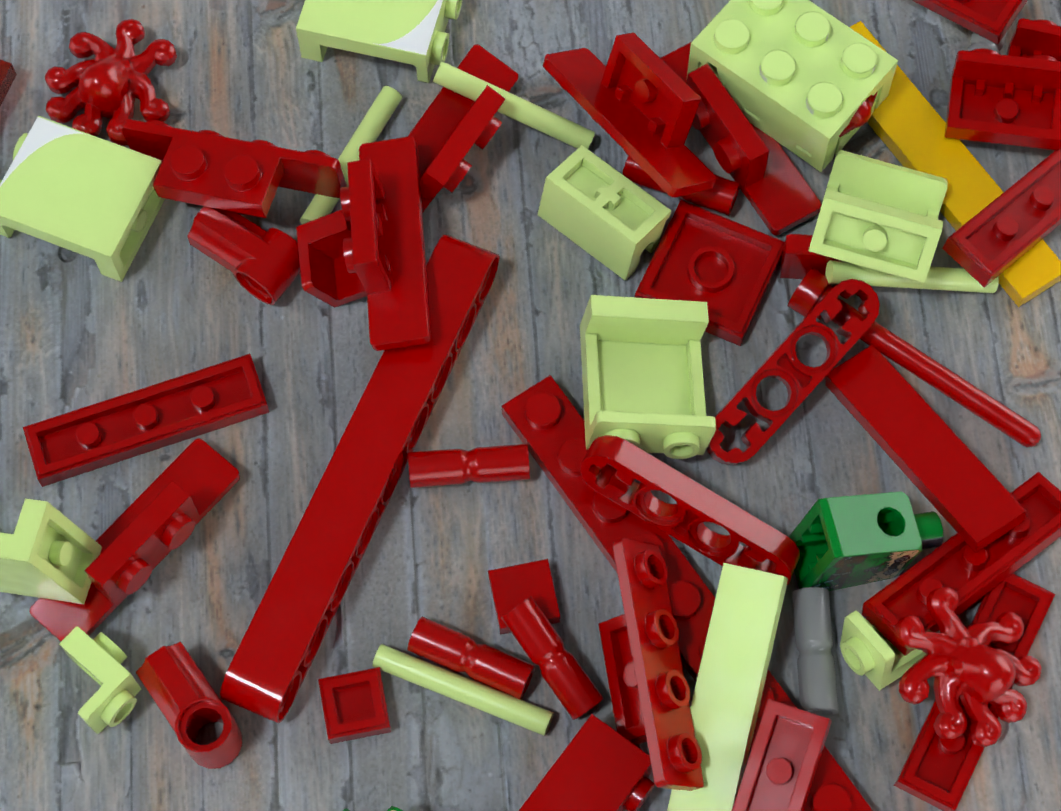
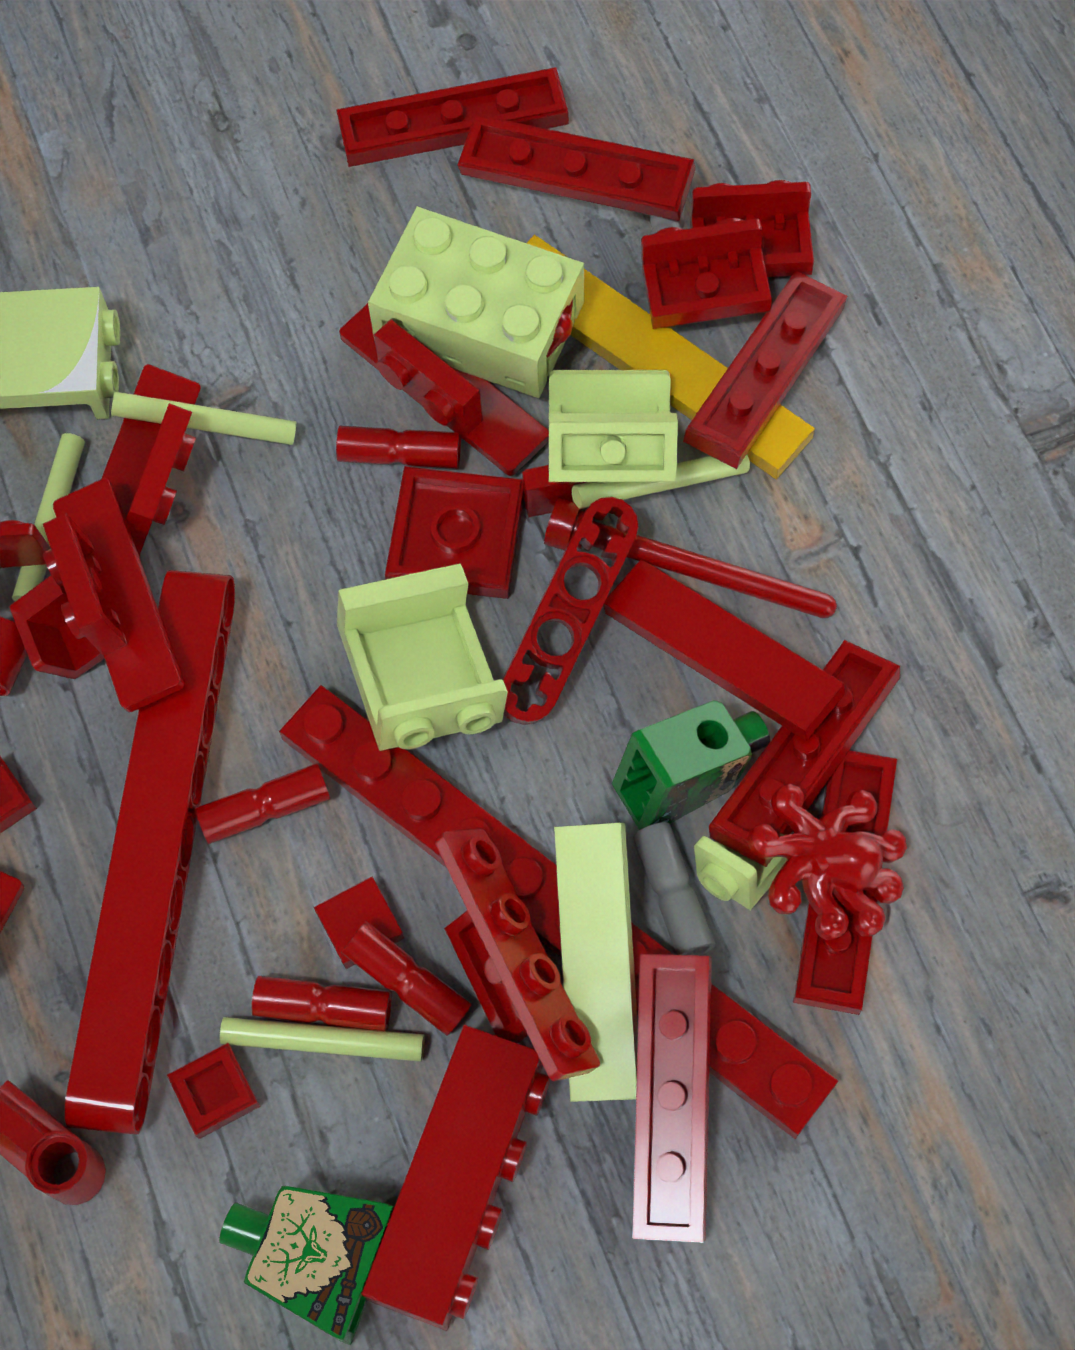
camera: 15 degrees left, 0 degrees up
(602, 211) = (326, 500): yellowish green hinge -> none
(639, 107) = (333, 382): red bracket -> none
(765, 546) = (412, 762): red beam -> none

